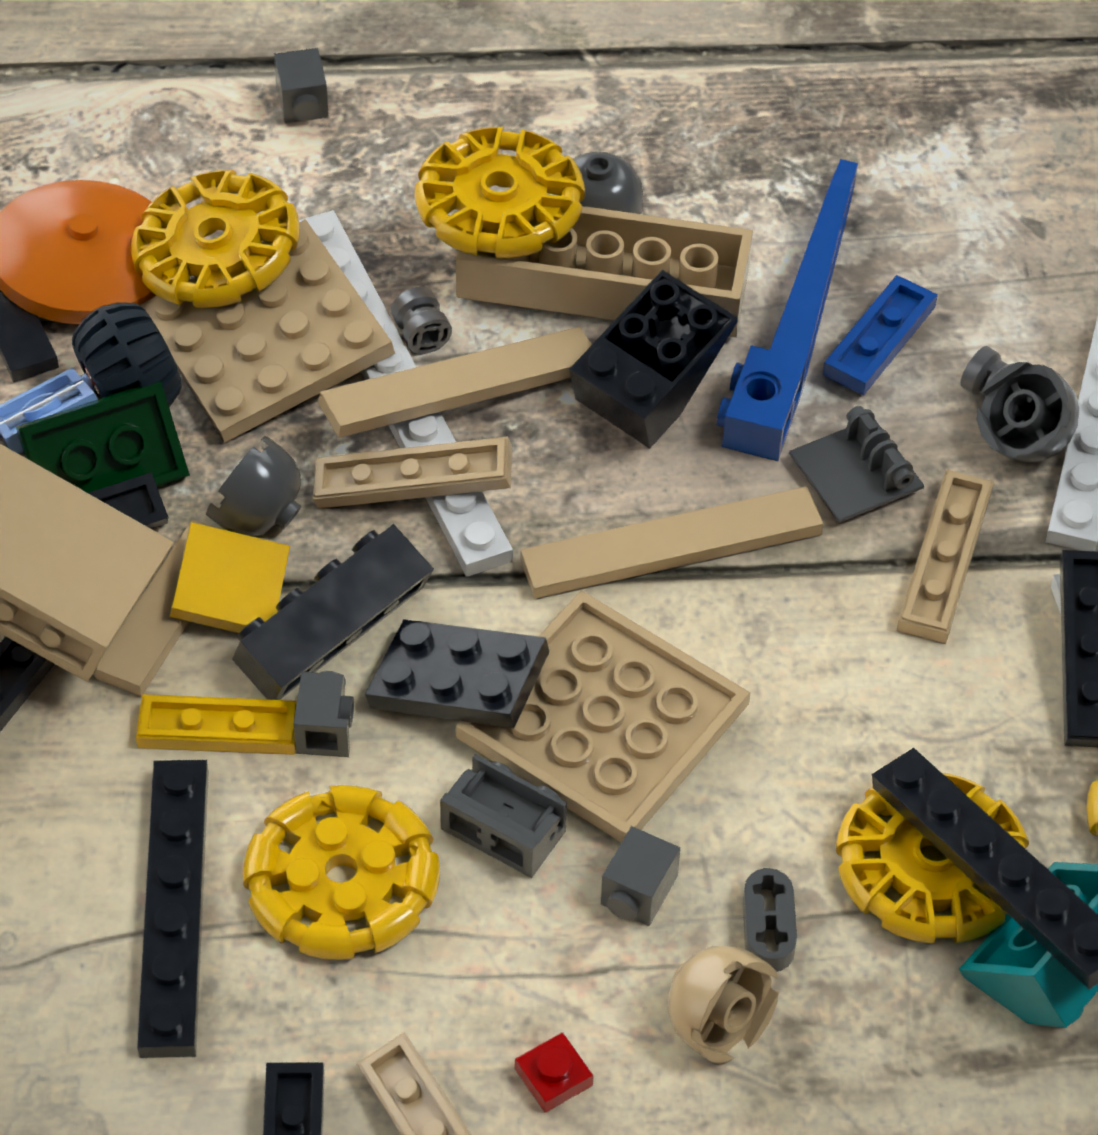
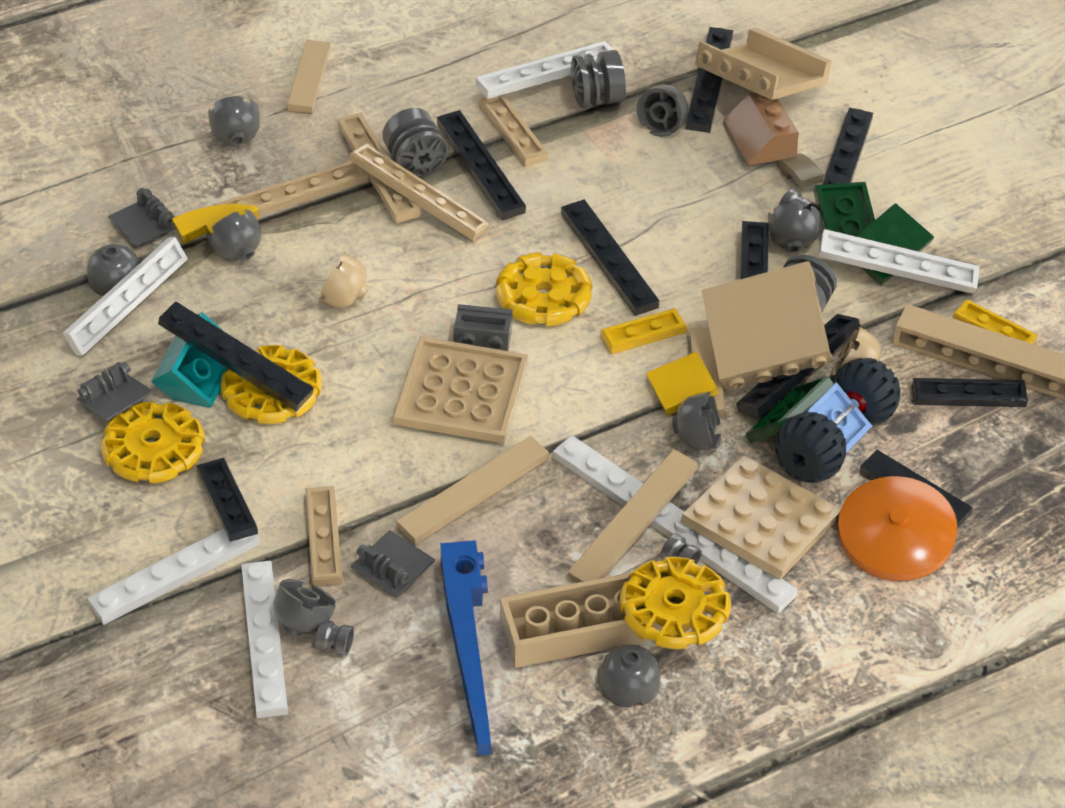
camera: 155 degrees right, 5 degrees down
(218, 262) = (844, 539): yellow plate -> none
(301, 85) = (858, 679): dark grey brick -> none
(323, 715) = (594, 340): dark grey brick -> none
(332, 612) = (619, 381): black brick -> none
(413, 472) = (620, 461): tan tile -> none
(458, 673) = (541, 376): black plate -> none
(553, 1072) = (404, 250): red plate -> none
(639, 876) = (405, 325): dark grey brick -> none
(652, 358) = (535, 553): black slope -> none
(781, 919) = (342, 333): dark grey beam -> none
(879, 335) = (414, 646): blue plate -> none

